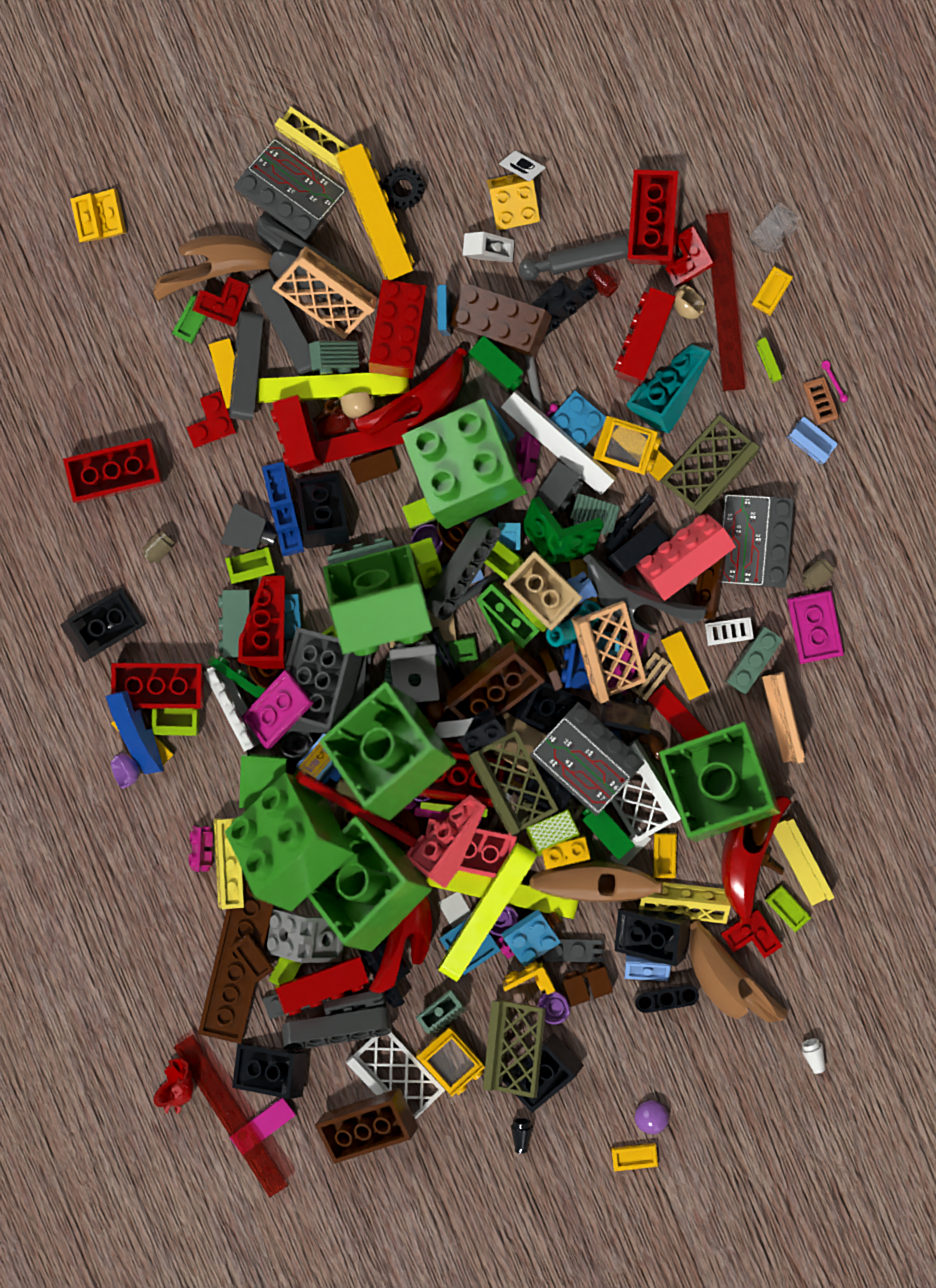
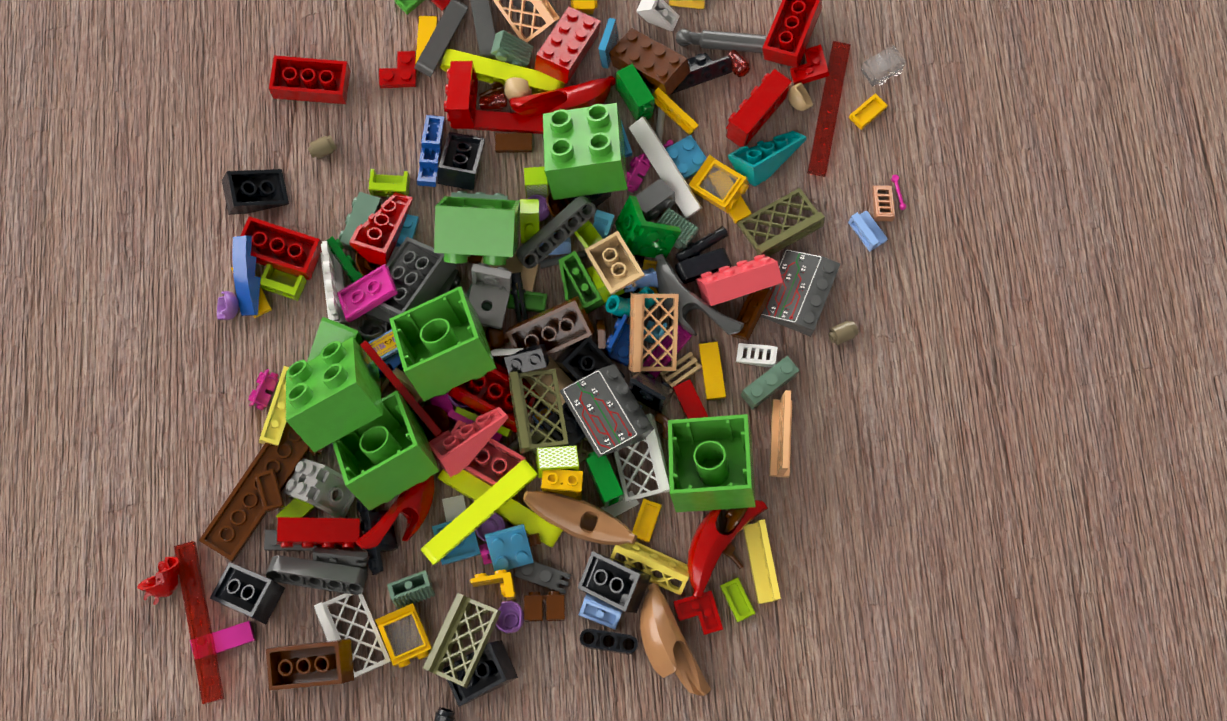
camera: 20 degrees right, 15 degrees down
(246, 530) = (395, 156): dark grey torso -> none
(547, 370) = (674, 111): none -> yellow tile
(768, 360) = (850, 159): lime tile -> none
(815, 627) = (828, 374): dark pink tile -> none

